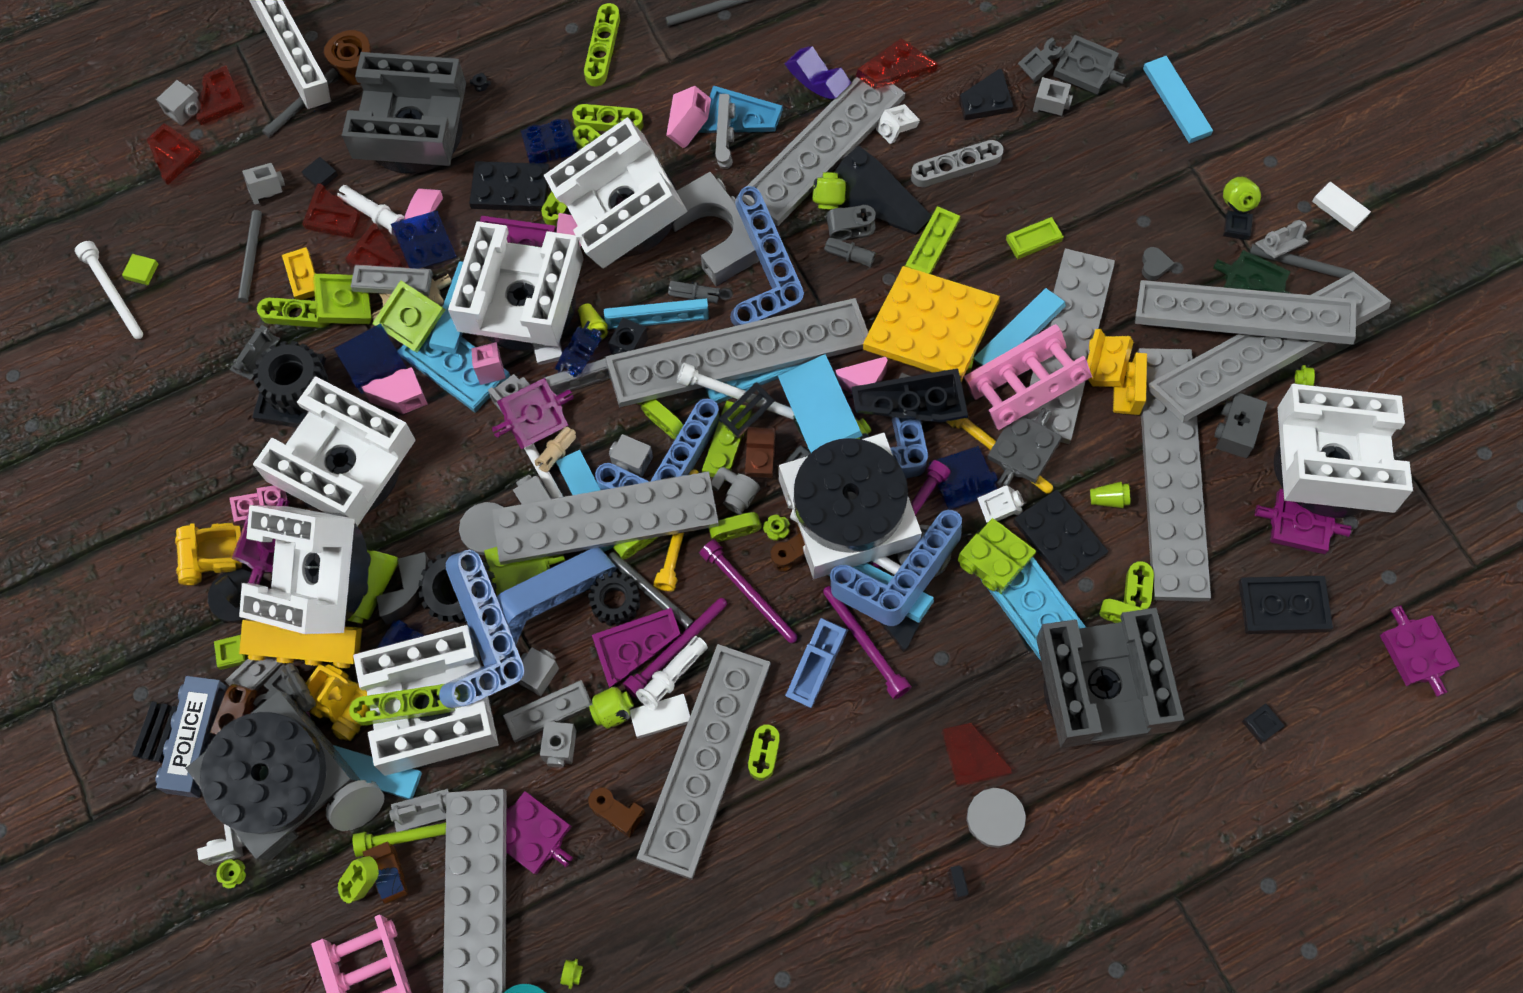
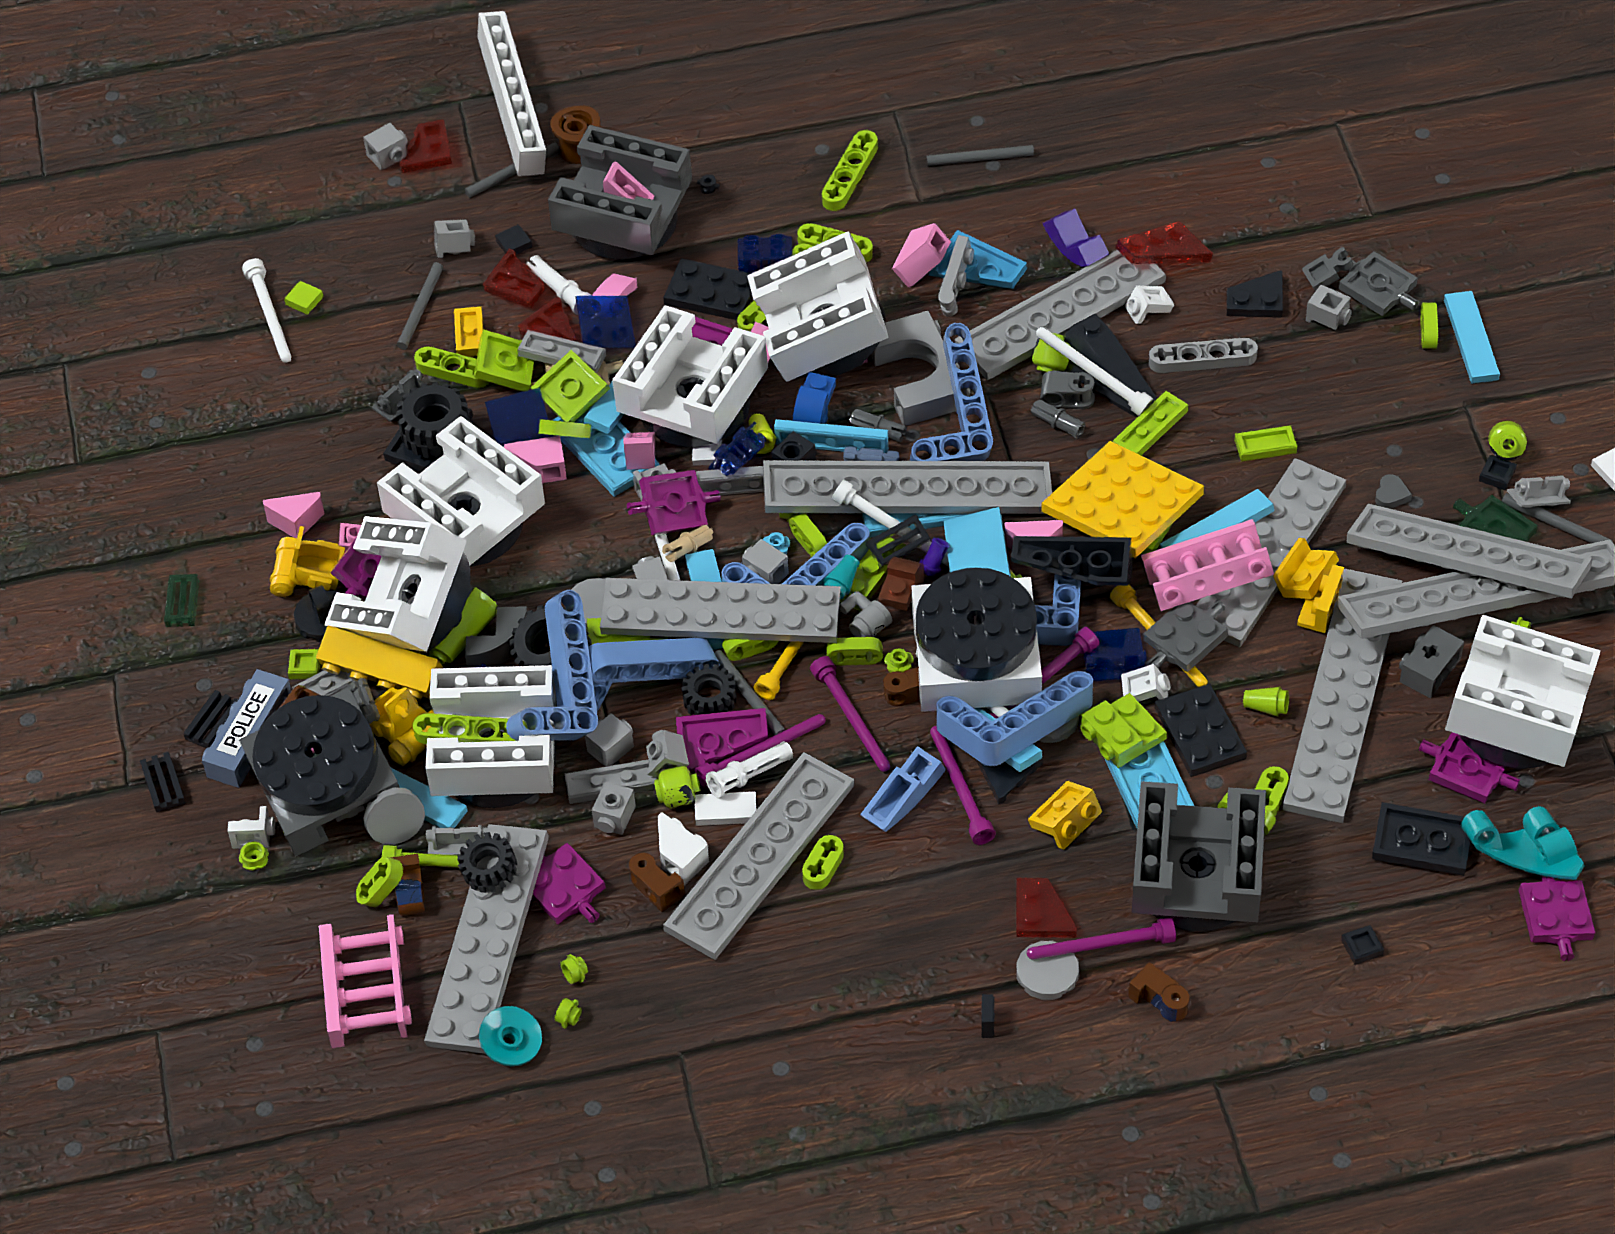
camera: 15 degrees right, 15 degrees down
(101, 630) = (180, 618): none -> clear green tile
(112, 791) = (157, 763): none -> black tile
(171, 152) = (365, 192): clear red wing -> none
(184, 497) = (294, 511): none -> bright pink slope
(408, 106) = (623, 184): none -> bright pink slope
(414, 359) = (564, 428): none -> lime beam
(444, 829) = (486, 847): none -> black tyre
(565, 923) = (574, 969): none -> lime plate
(592, 675) = (666, 752): none -> light grey brick
(630, 774) = (680, 849): none -> white slope
(632, 281) = (814, 399): none -> blue brick
(635, 425) = (776, 537): none -> medium azure plate
(696, 324) = (868, 454): none -> sand blue axle
(706, 456) = (843, 575): none -> teal cone
(781, 416) = (934, 556): none -> dark purple pin
(916, 222) = (1138, 401): none -> white piece
(968, 651) = (1066, 813): none -> yellow bracket
(1084, 755) = (1161, 931): none -> magenta piece
(1106, 818) = (1160, 992): none -> reddish brown leg
(1141, 96) = (1429, 326): none -> lime beam
(1381, 592) = (1537, 848): none -> teal panel

